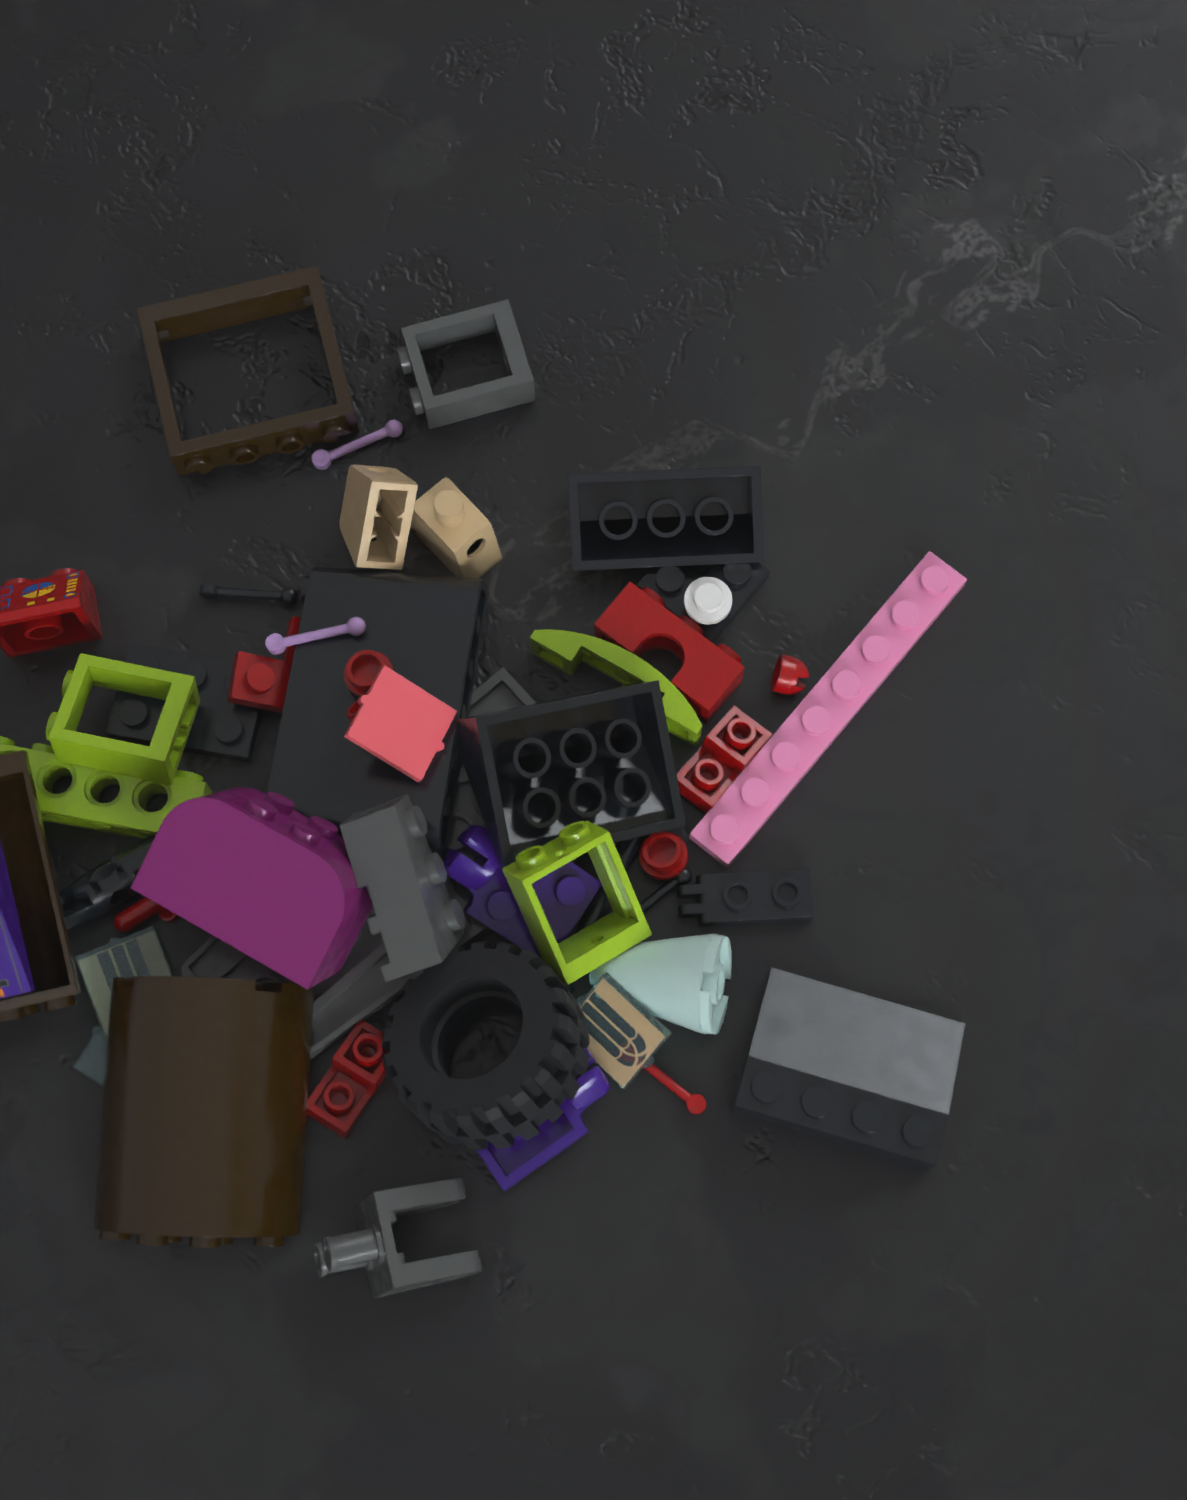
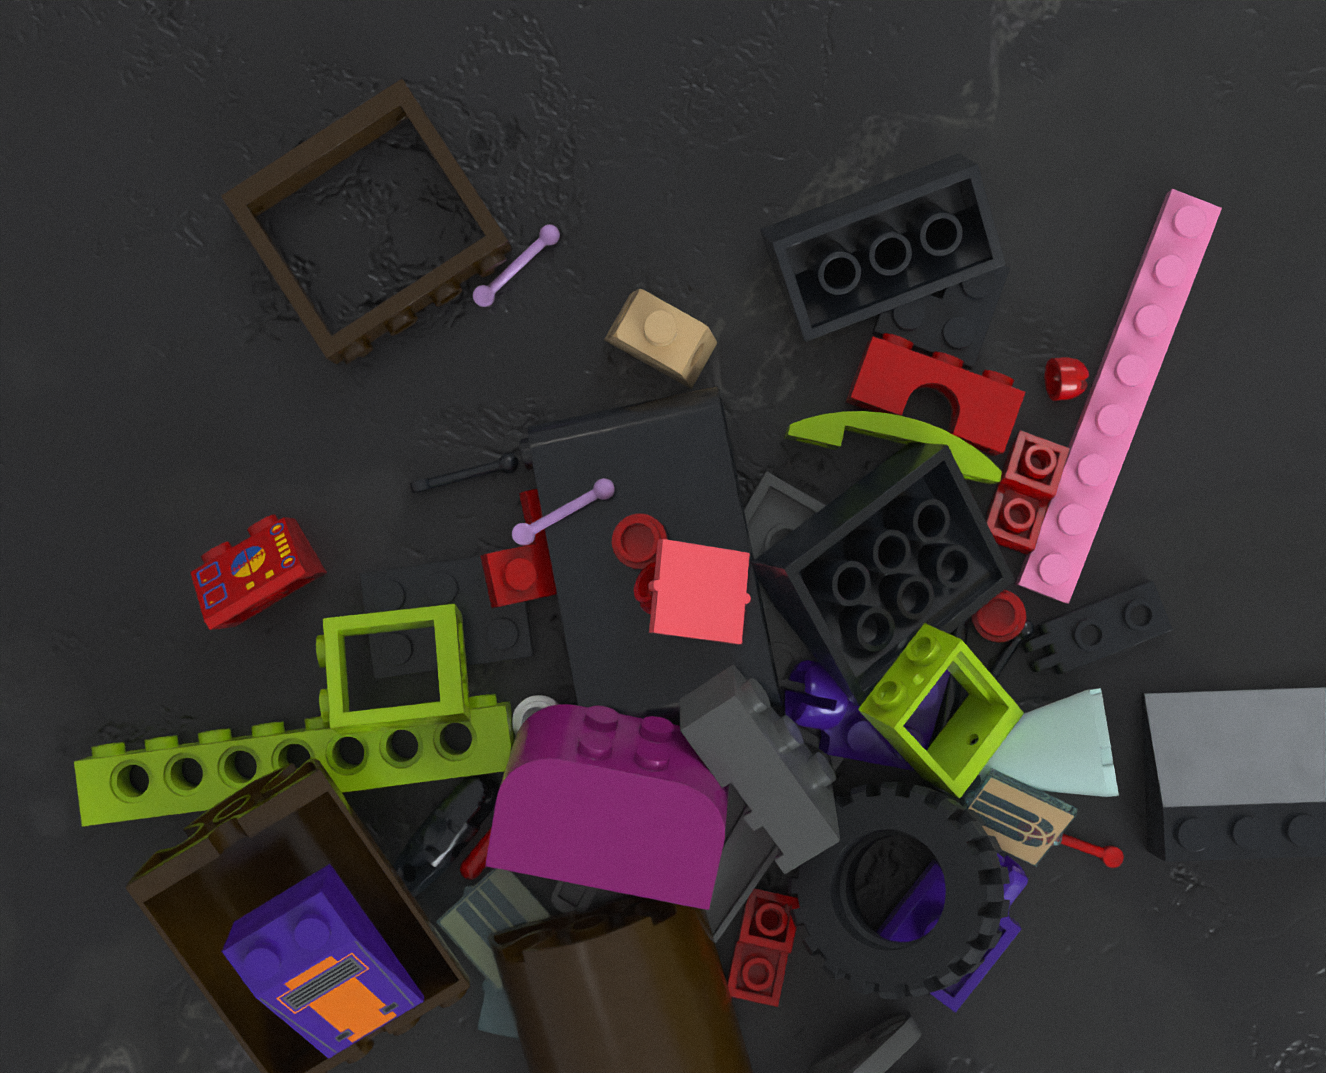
camera: 20 degrees left, 15 degrees up
(381, 506) = (577, 351): tan torso -> none
(476, 399) = (650, 106): dark grey window -> none
(708, 600) = (962, 329): white plate -> none

